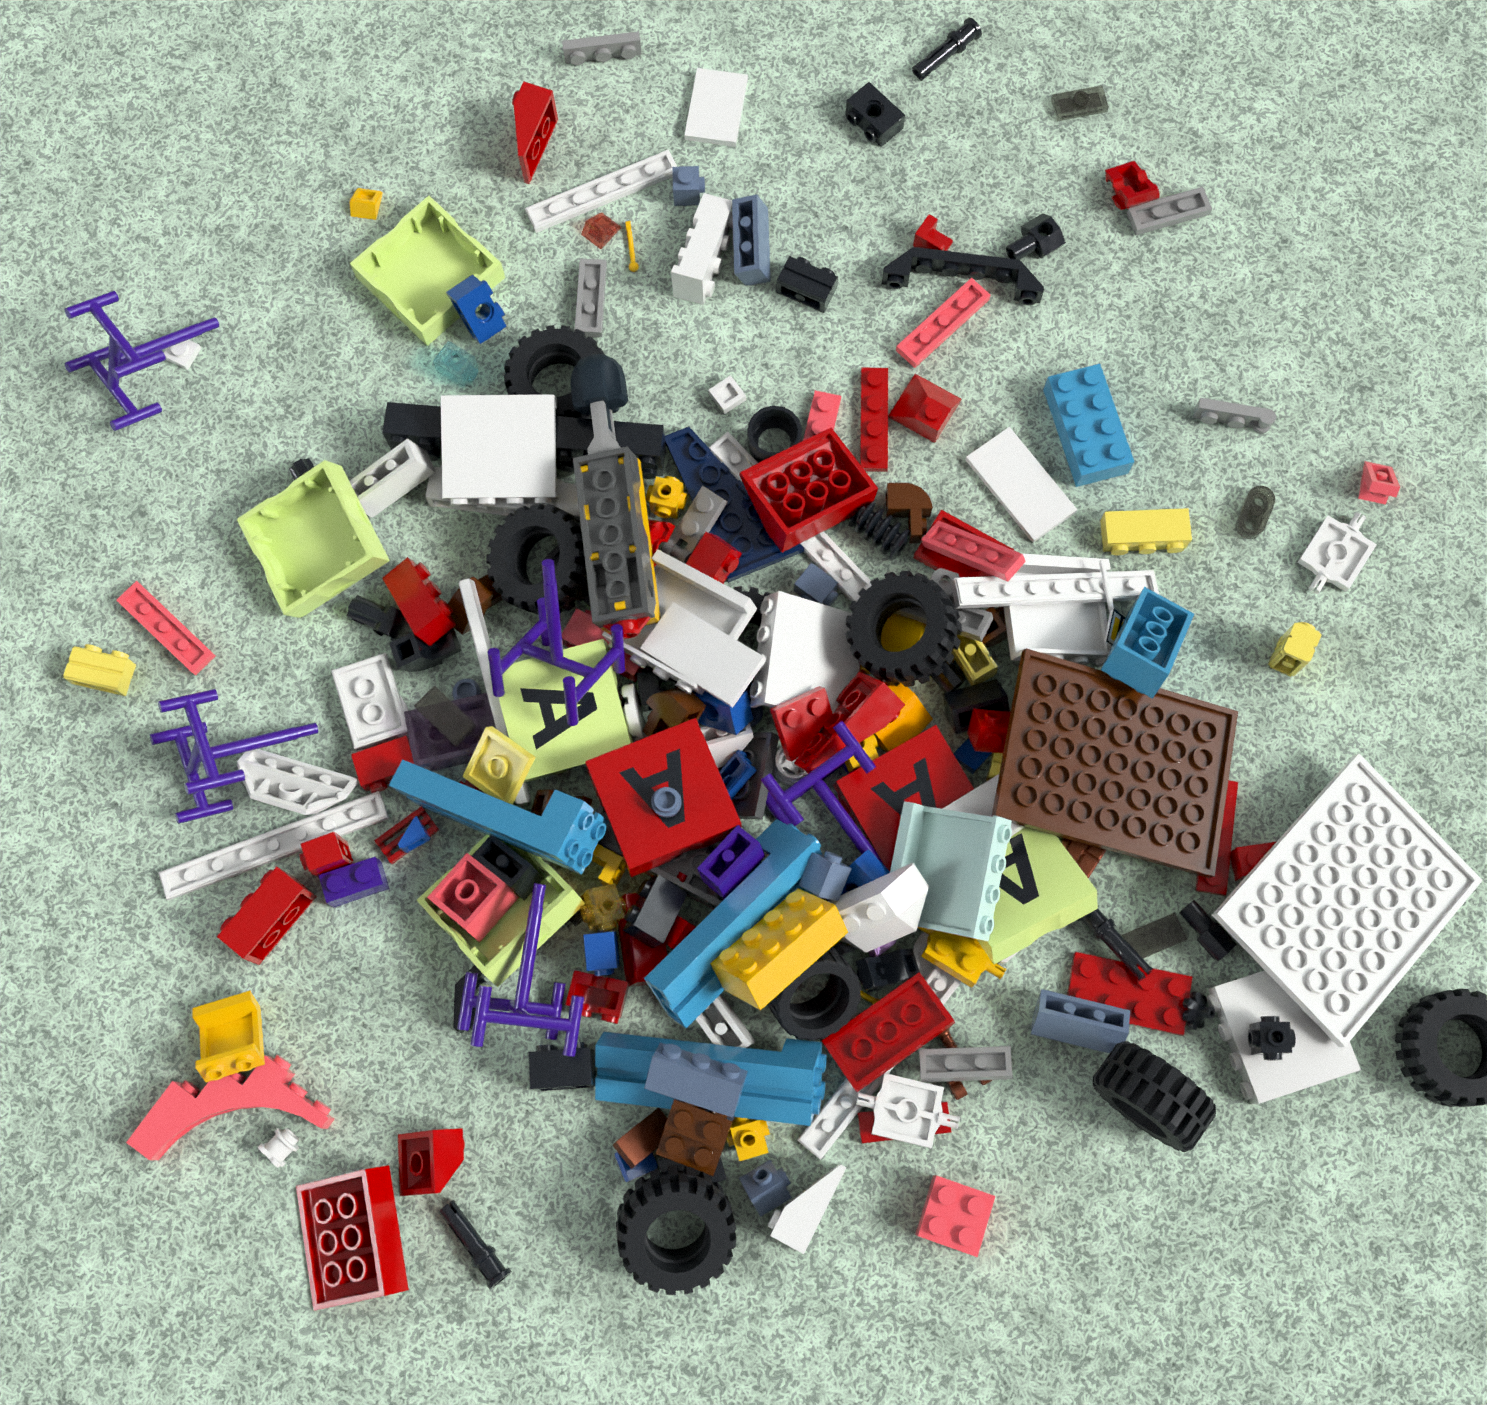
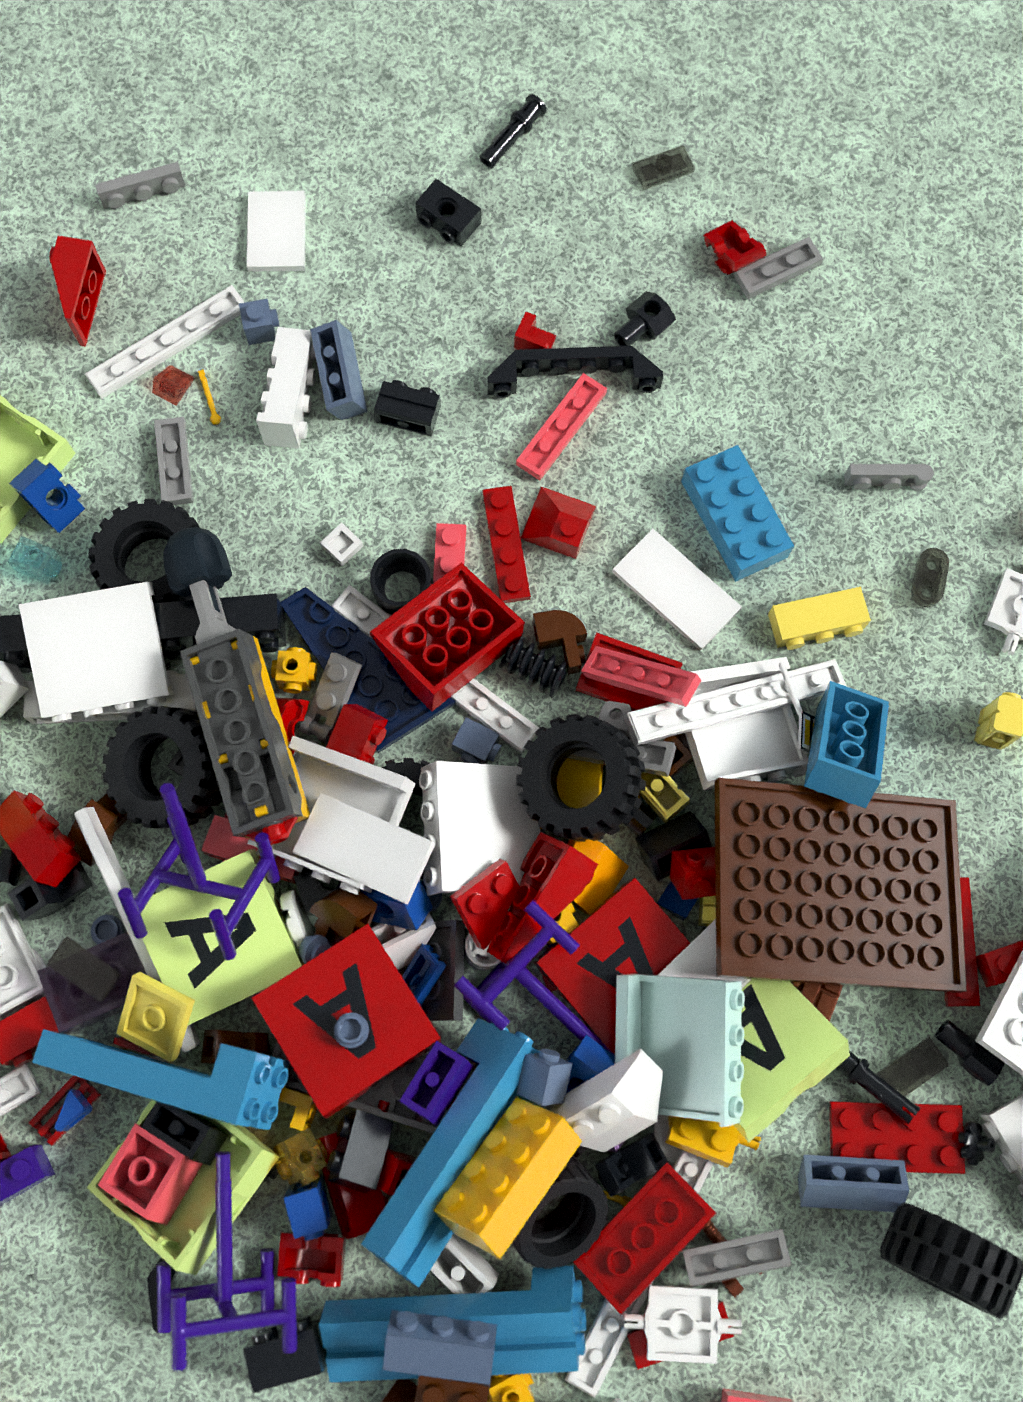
camera: 15 degrees left, 0 degrees up
(642, 731) = (312, 947): none -> sand blue plate

